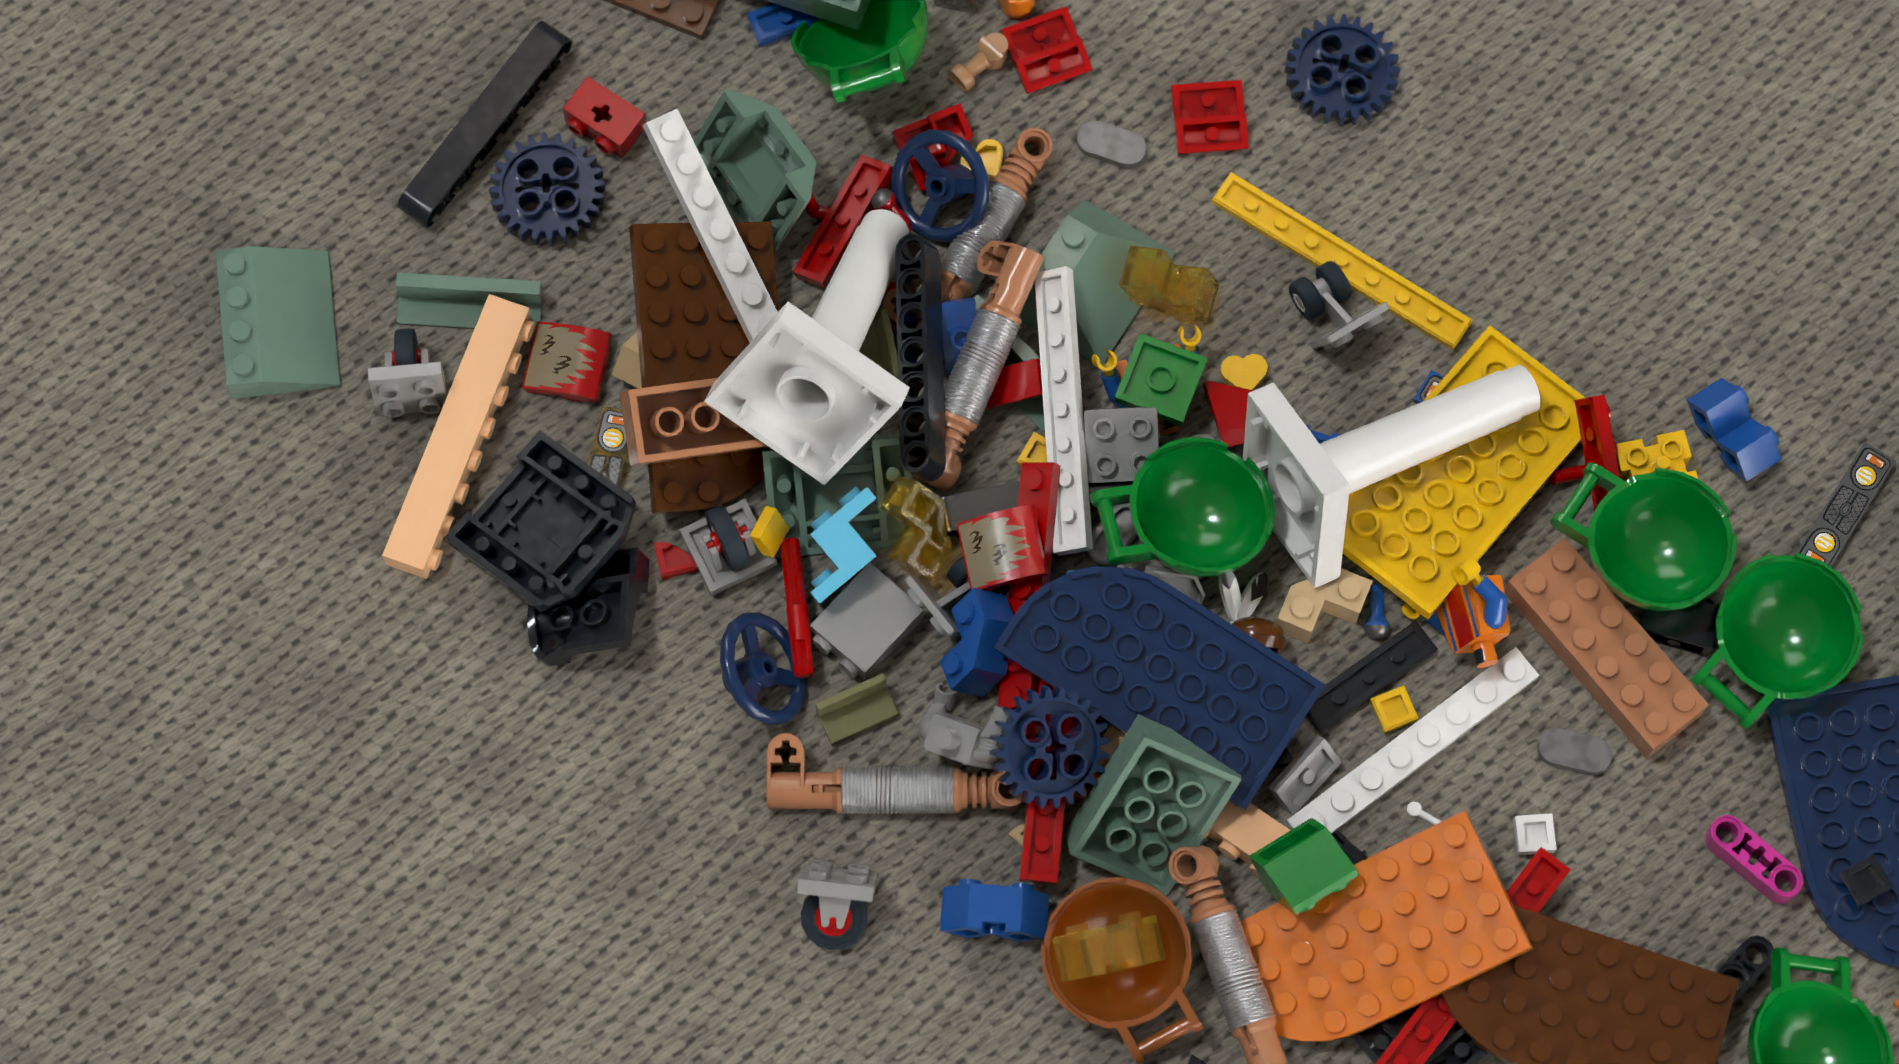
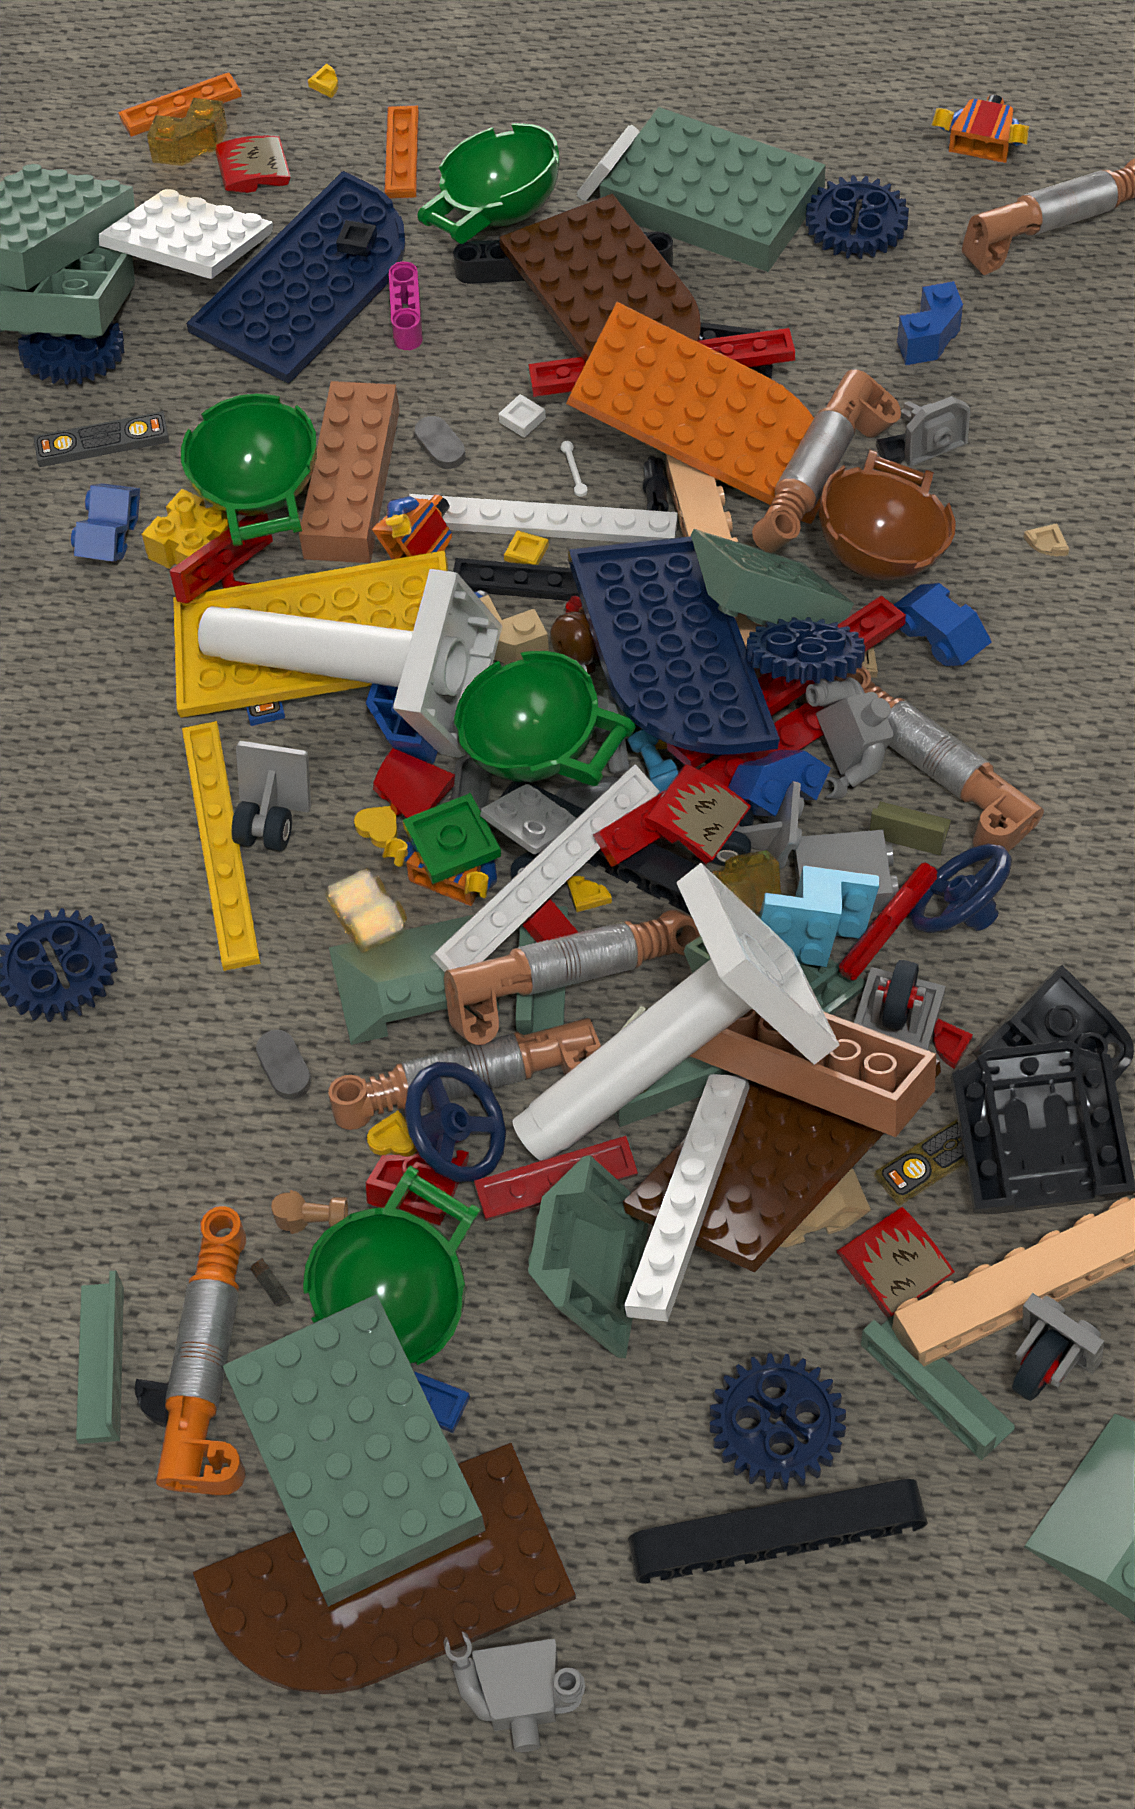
camera: 130 degrees left, 15 degrees down
(595, 102) = (665, 1462): red brick -> none
(769, 531) = (861, 976): yellow tile -> none
(835, 904) = (1045, 714): light grey plate -> none
(886, 200) = (510, 1154): piece -> none
(928, 371) = (604, 999): black beam -> none
(956, 322) = (561, 1006): blue plate -> none
(1046, 50) = (248, 1179): red slope -> none
(1108, 948) = (902, 524): clear yellow brick -> none
(1209, 117) = (188, 1021): red slope -> none
(1303, 866) = (706, 461): green slope -> none
(1783, 631) = (240, 360): green windscreen -> none

